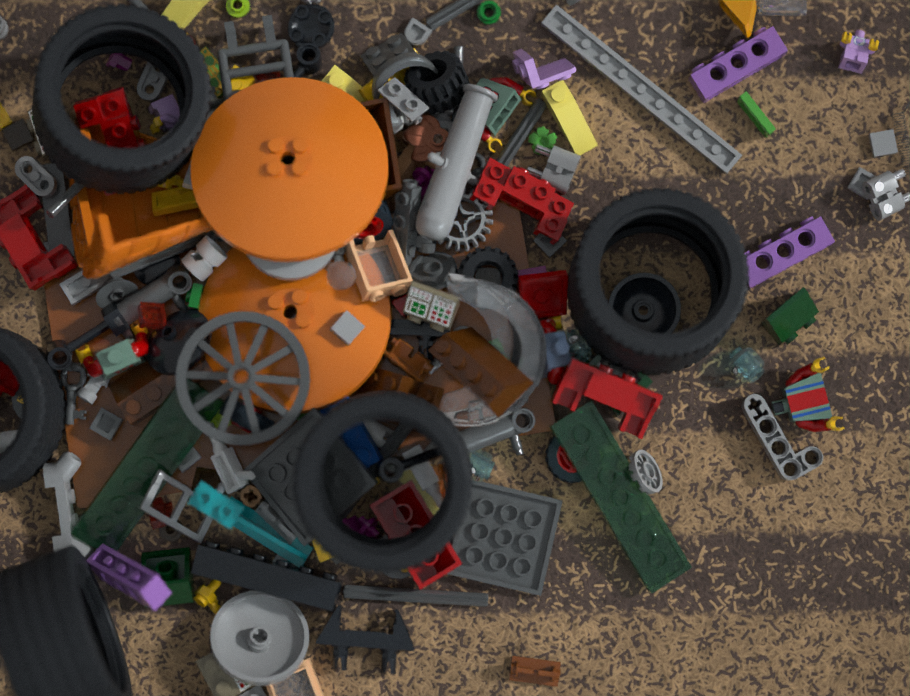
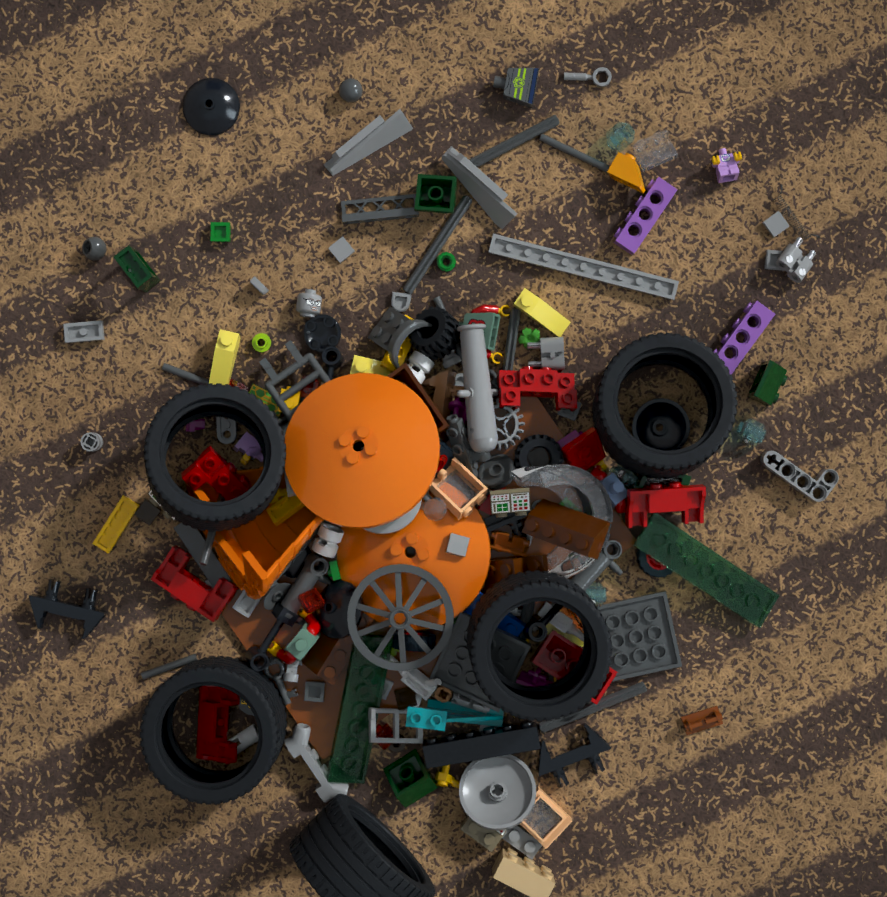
camera: 30 degrees left, 5 degrees up
(37, 178) = (177, 538): light grey plate -> none
(128, 577) = (386, 795): medium lavender brick -> none
(404, 100) = (418, 359): light grey hinge -> none
(423, 137) = (444, 378): copper plate -> none
(541, 76) = (508, 290): lavender bracket -> none
(645, 473) = (716, 544): light grey wheel -> none
(756, 114) = (675, 247): bright green tile -> none
(807, 400) = (807, 437): torso -> none

